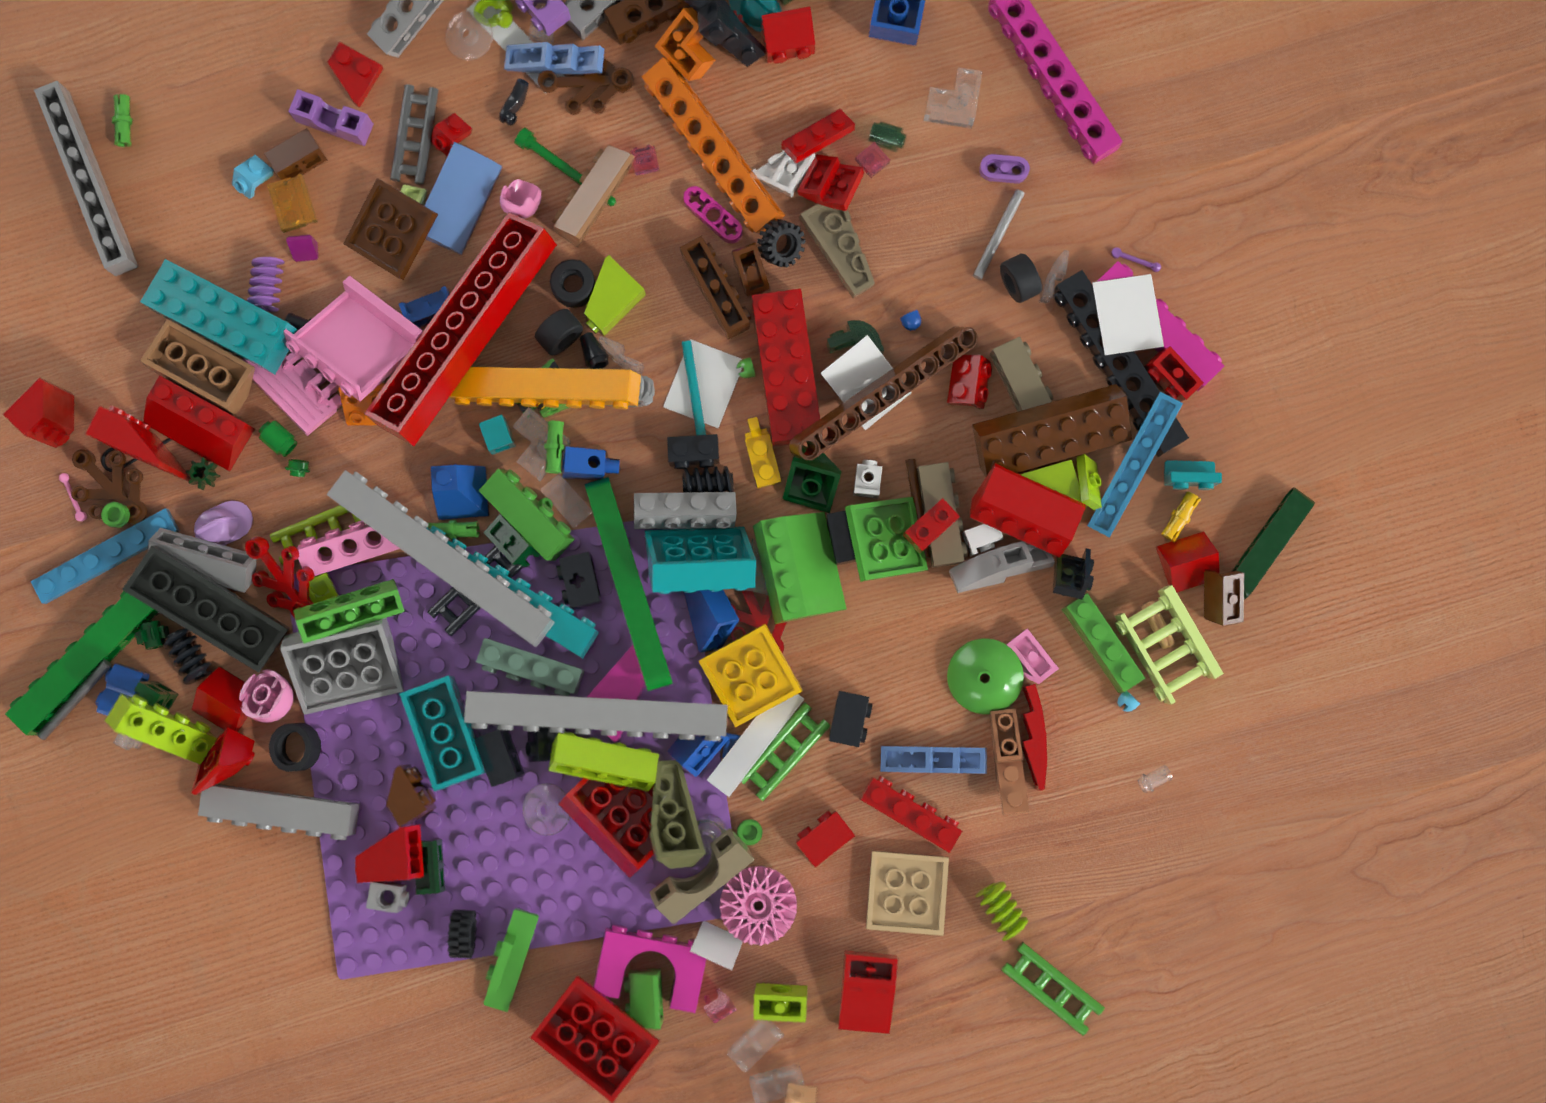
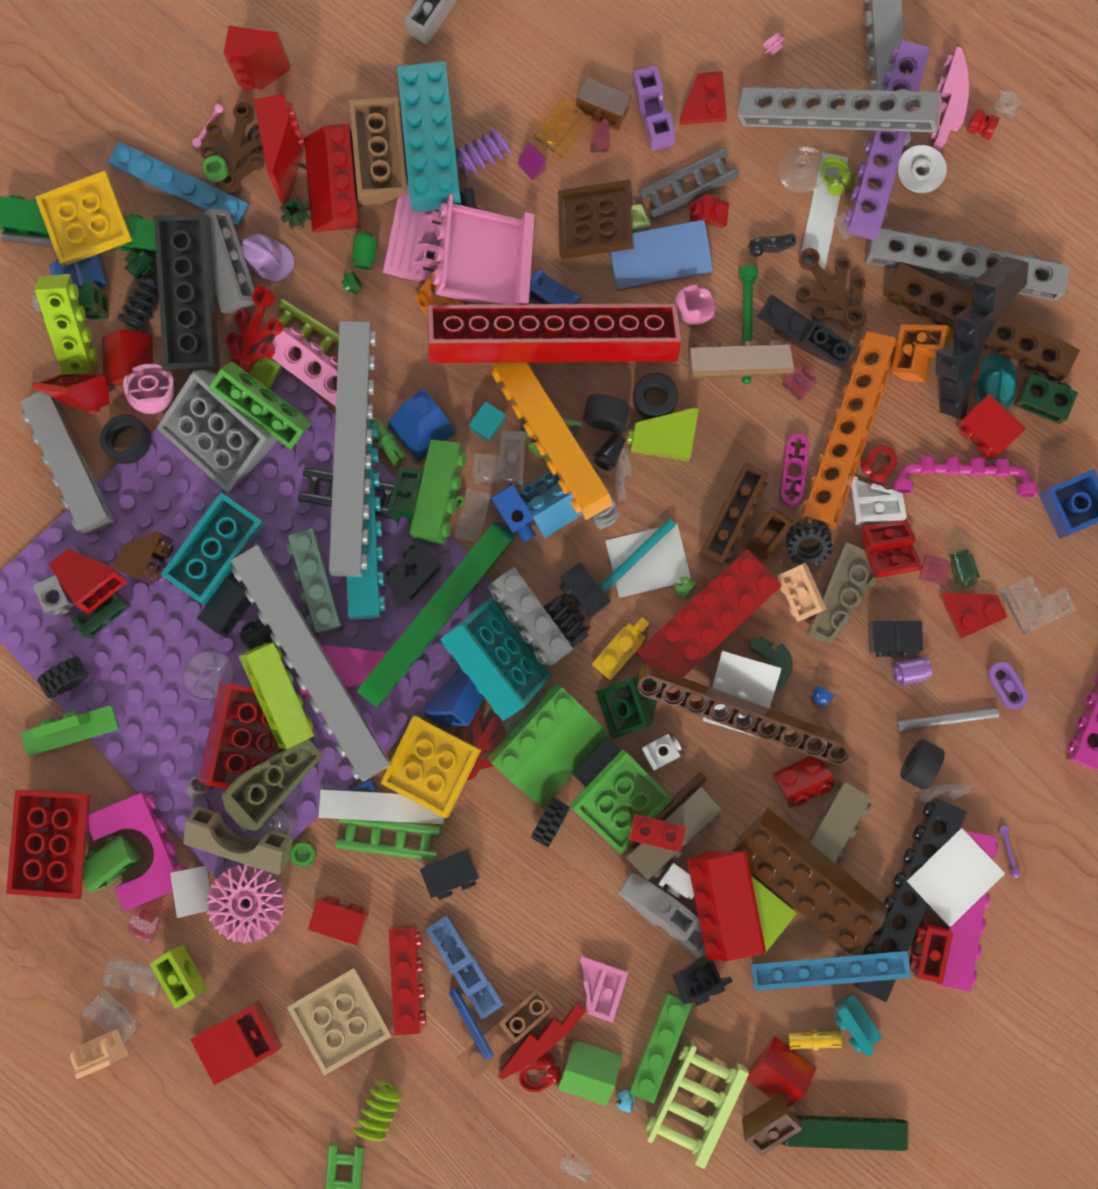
camera: 60 degrees right, 0 degrees up
(78, 654) = (83, 218): none -> yellow plate
(250, 175) = (562, 79): medium azure bracket -> none
(325, 177) = (601, 139): none -> clear pink slope
(554, 447) = (506, 475): bright green pin -> none
(555, 58) = (832, 252): medium blue slope -> none
(601, 429) = (548, 504): none -> dark azure slope
(607, 128) = (805, 334): none -> black slope
(634, 884) = (198, 789): none -> light grey hinge
(695, 753) = (333, 766): blue panel -> none
(748, 149) = (870, 461): none -> red piece
(813, 70) = (975, 468): none -> dark pink bar
(817, 277) = (801, 592): none -> light nougat bracket
(818, 136) = (922, 510): red plate -> none
(863, 608) = (550, 822): none -> black tyre
(905, 228) = (895, 636): none -> black brick
(926, 154) = (972, 611): none -> red wing
(940, 234) = (912, 670): none -> medium lavender brick
(982, 784) = (471, 1024): none -> blue bar
(986, 657) = (581, 960): bright green dish -> none
(1053, 746) = (552, 1077): none -> red piece
(1086, 715) = (590, 1072): none -> bright green slope
(1089, 482) = (788, 941): lime plate -> none

